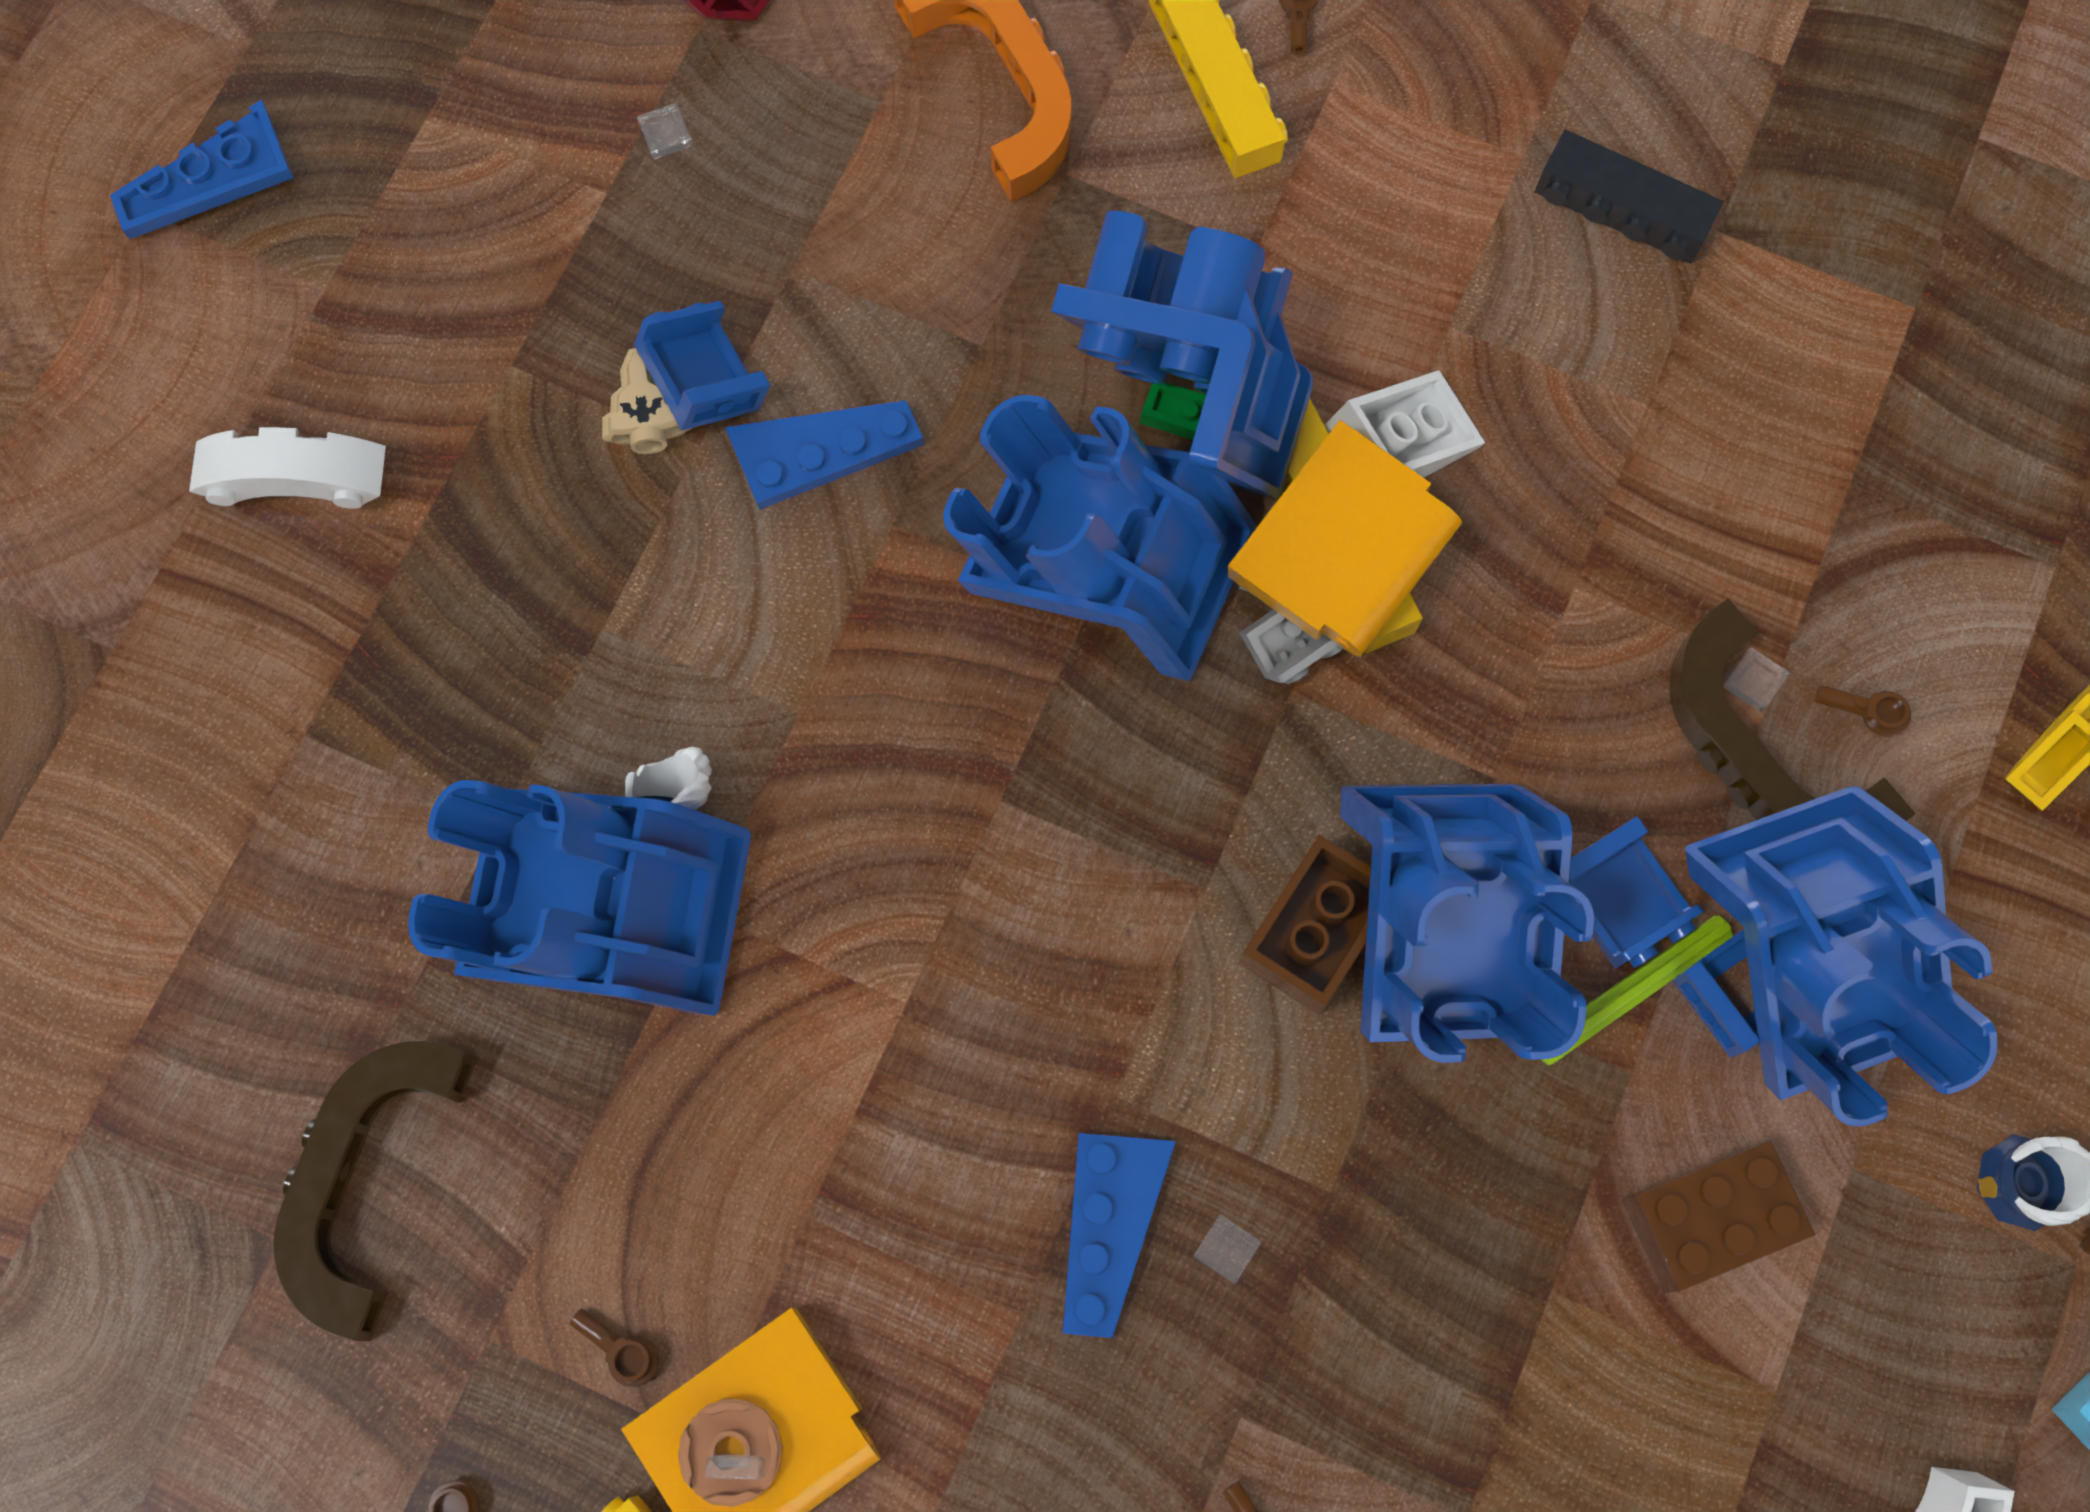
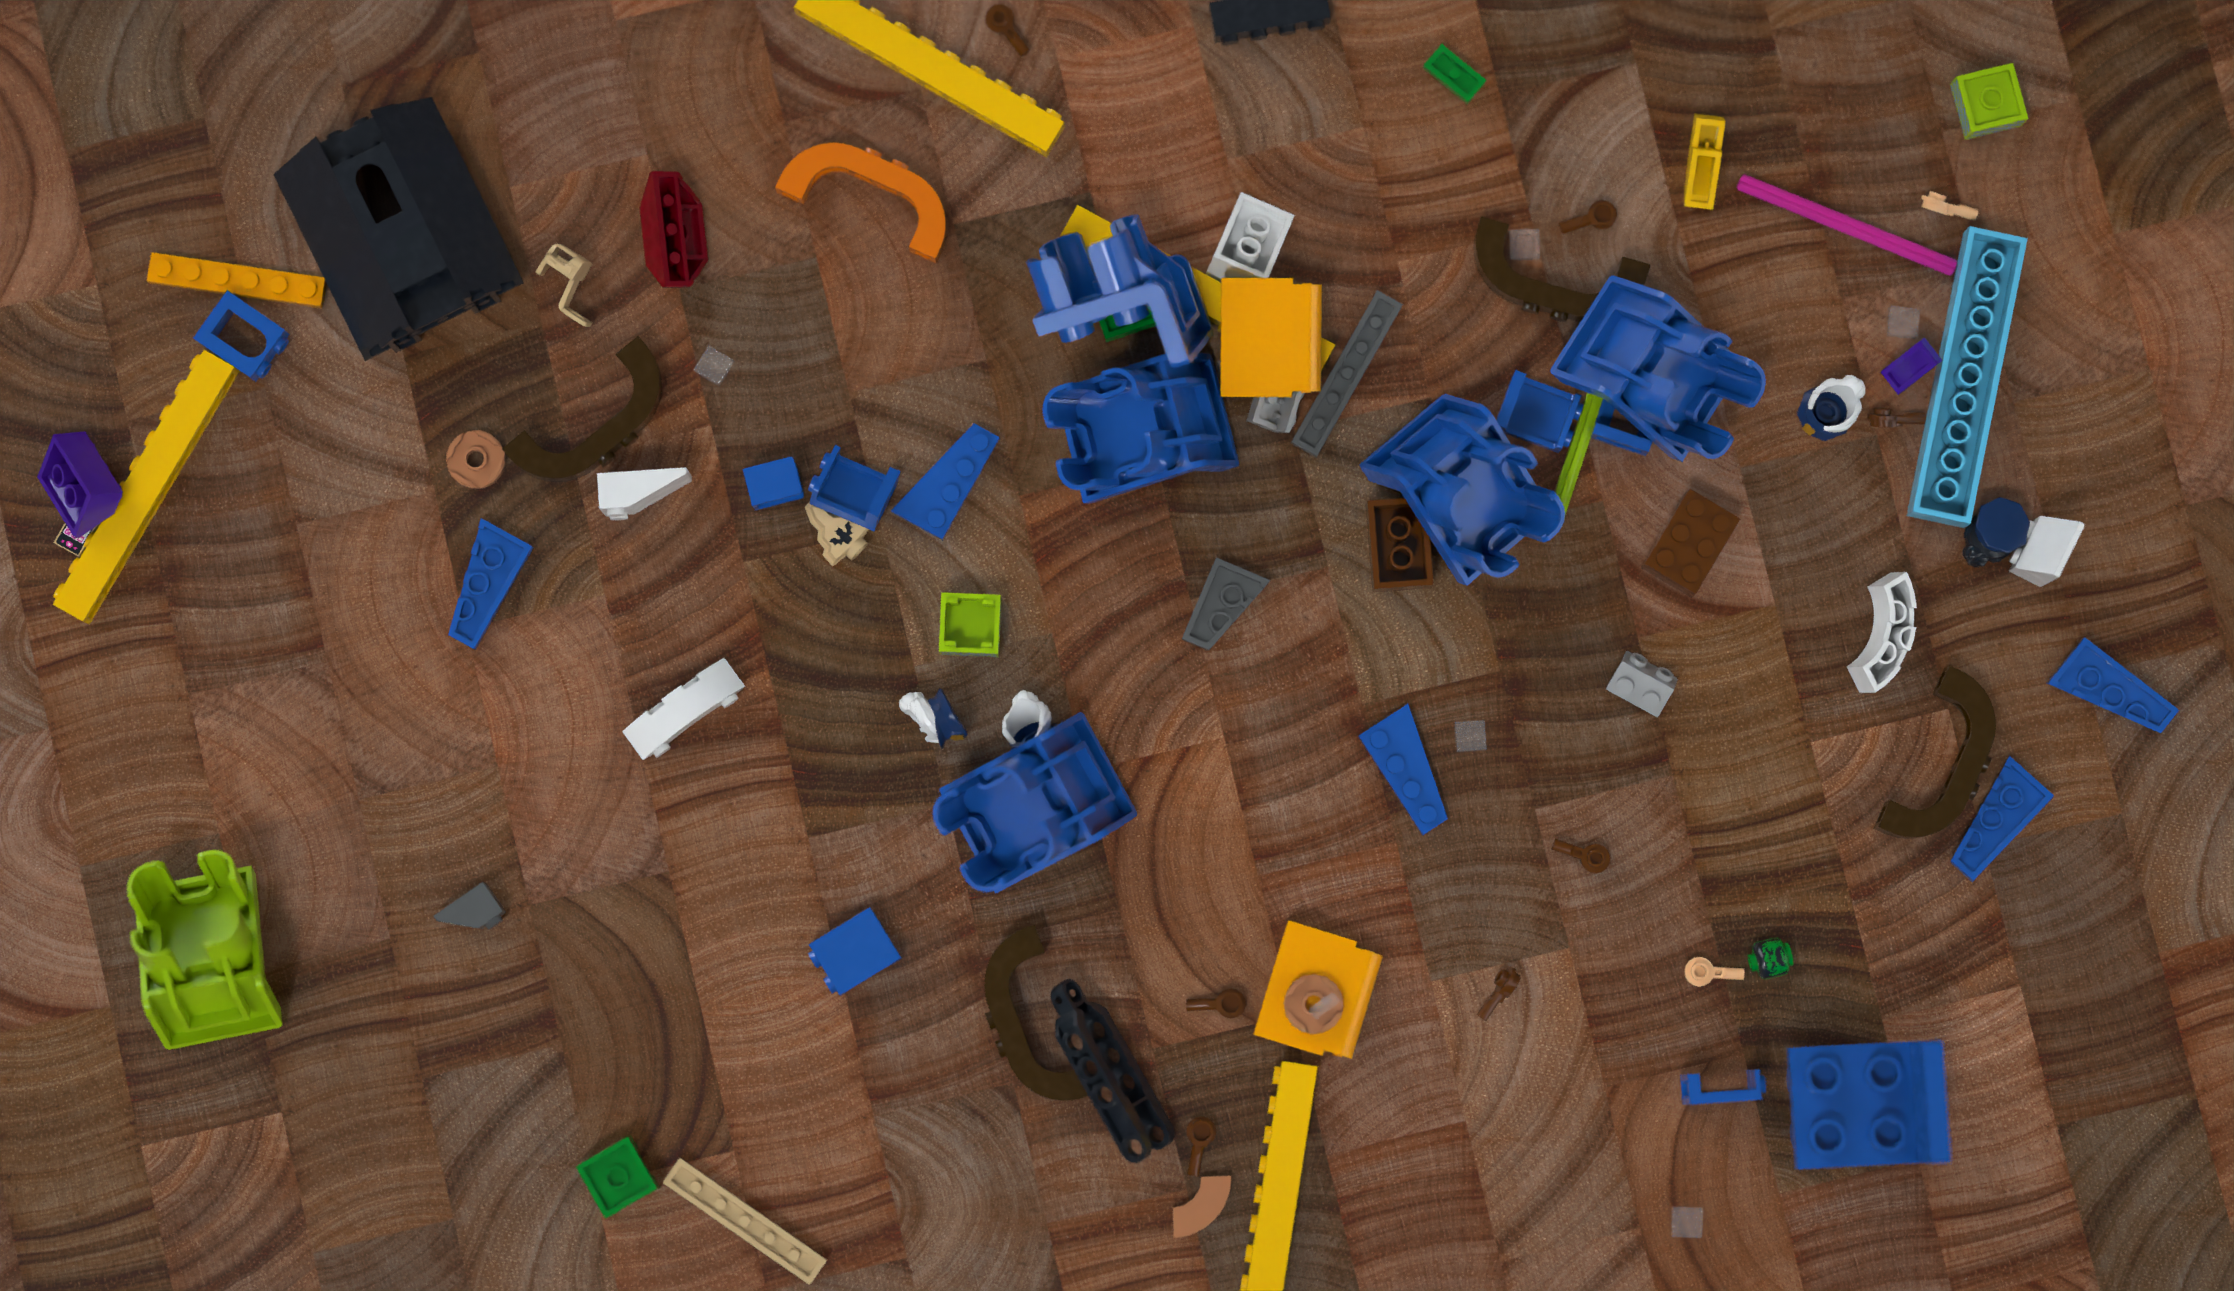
camera: 40 degrees left, 10 degrees up
(227, 912) = (853, 952): none -> blue panel
(325, 63) = (480, 476): none -> nougat tile
(403, 1394) = (1131, 1111): none -> black piece
(452, 186) = (635, 490): none -> white slope
(482, 117) = (609, 438): none -> dark brown arch
(567, 699) = (934, 717): none -> piece
(611, 293) = (773, 483): none -> blue piece
(704, 623) = (970, 624): none -> lime container
(1034, 831) = (1221, 602): none -> dark grey wing
(1409, 670) = (1346, 373): none -> dark grey plate
(1515, 1359) = (1642, 683): none -> light grey bracket
(1811, 418) = (1454, 74): none -> green plate

